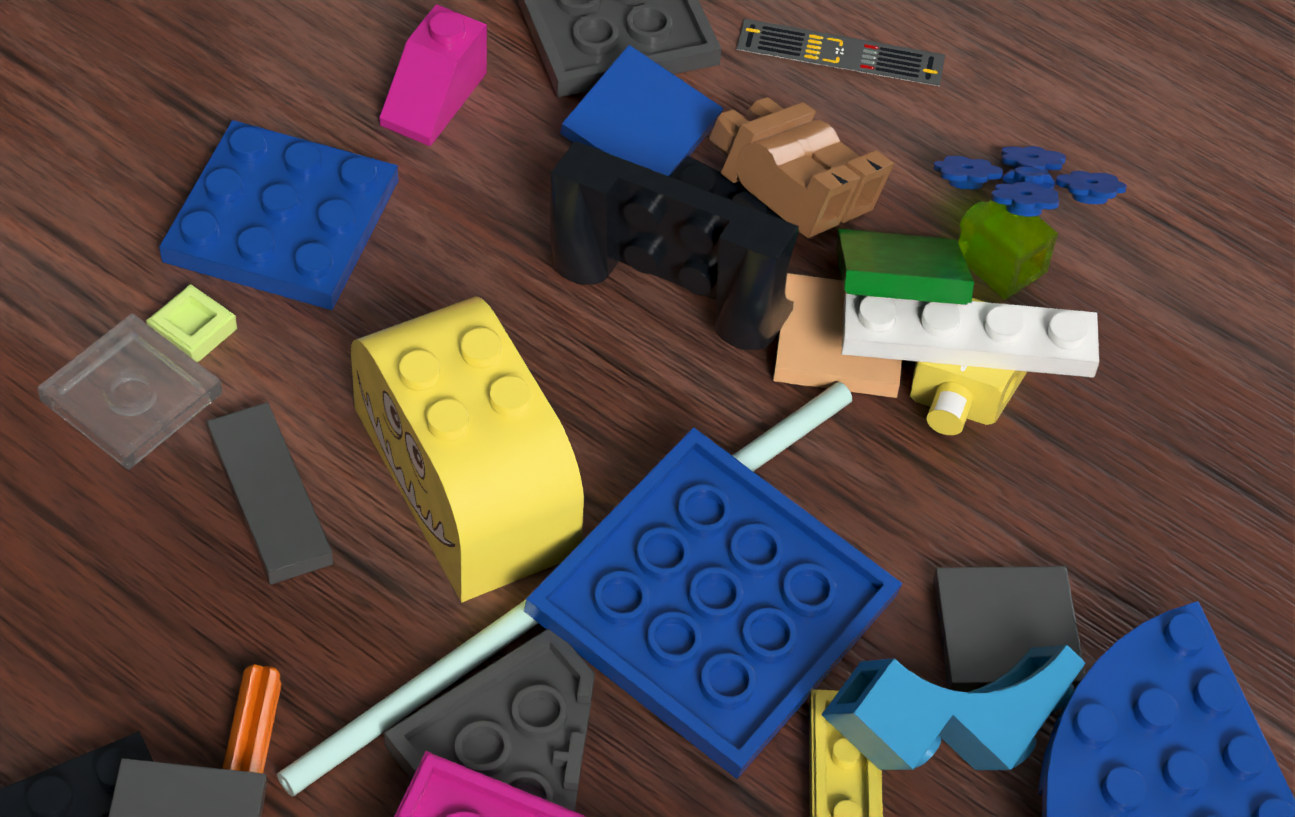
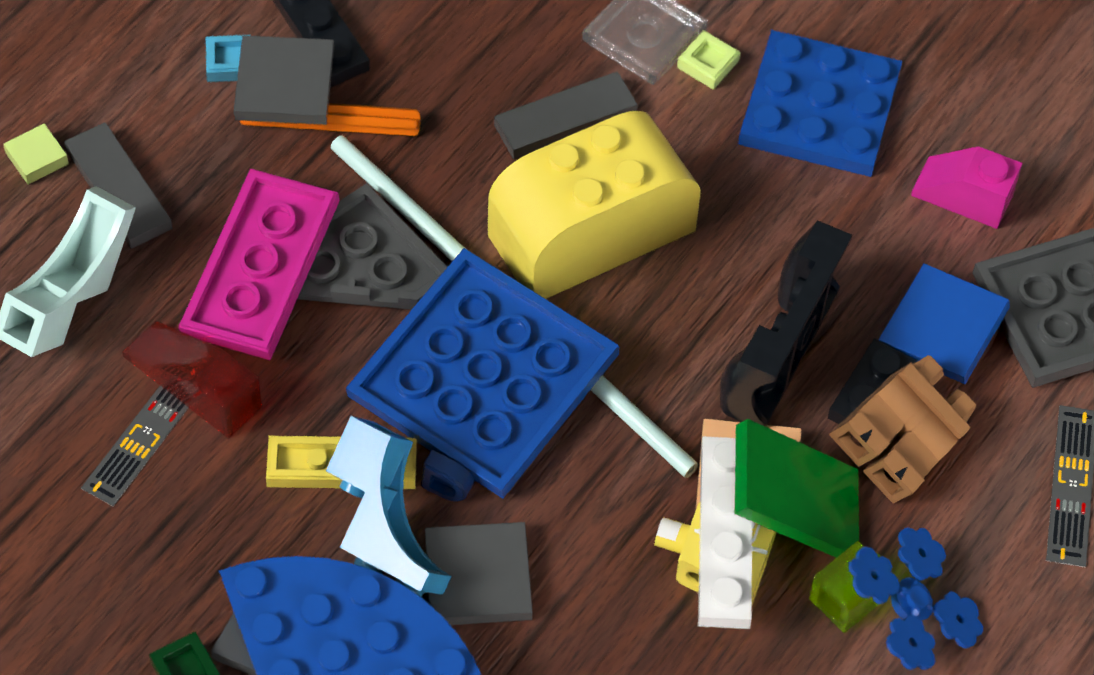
camera: 90 degrees right, 5 degrees up
(882, 640) = (446, 477): none -> dark blue tile

